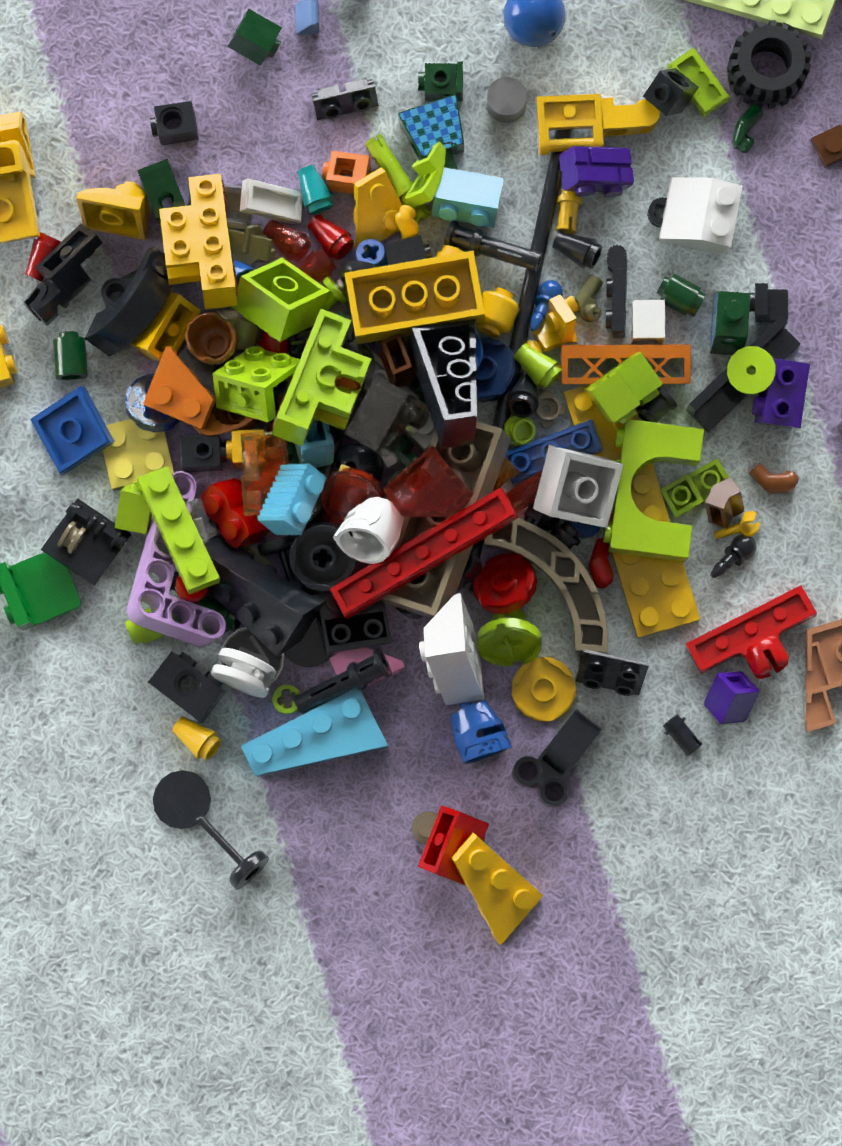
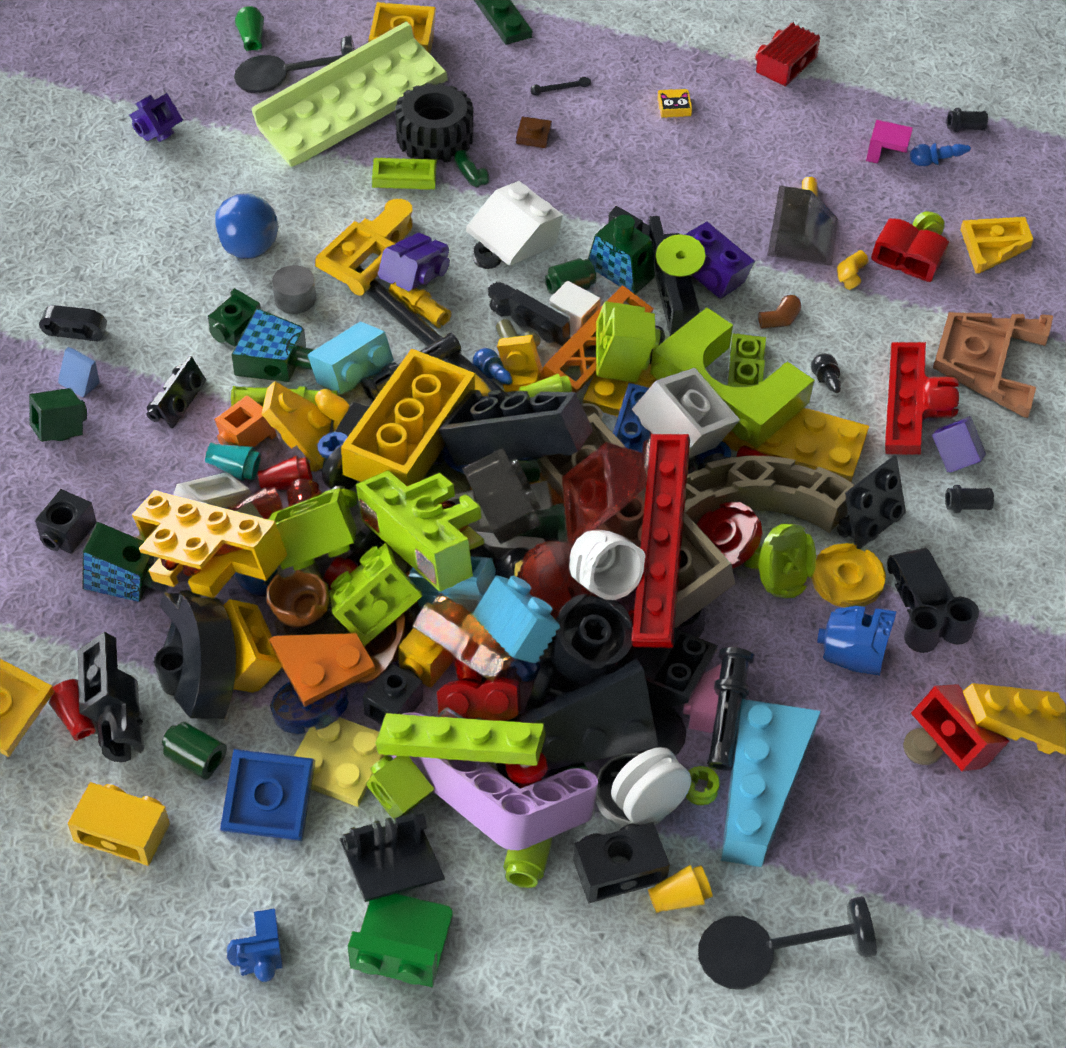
camera: 60 degrees left, 30 degrees down
(71, 537) = (379, 857): dark tan bush -> none
(116, 211) = (97, 606): yellow slope -> none
(395, 347) = (451, 466): reddish brown piece -> none
(429, 178) = (308, 365): lime slope -> none
(453, 654) = (778, 589): white slope -> none
(579, 249) = (467, 318): black cone -> none
(670, 91) = (397, 181): black brick -> none
(724, 503) = (772, 336): reddish brown piece -> none
(742, 527) = (802, 349): yellow hand -> none

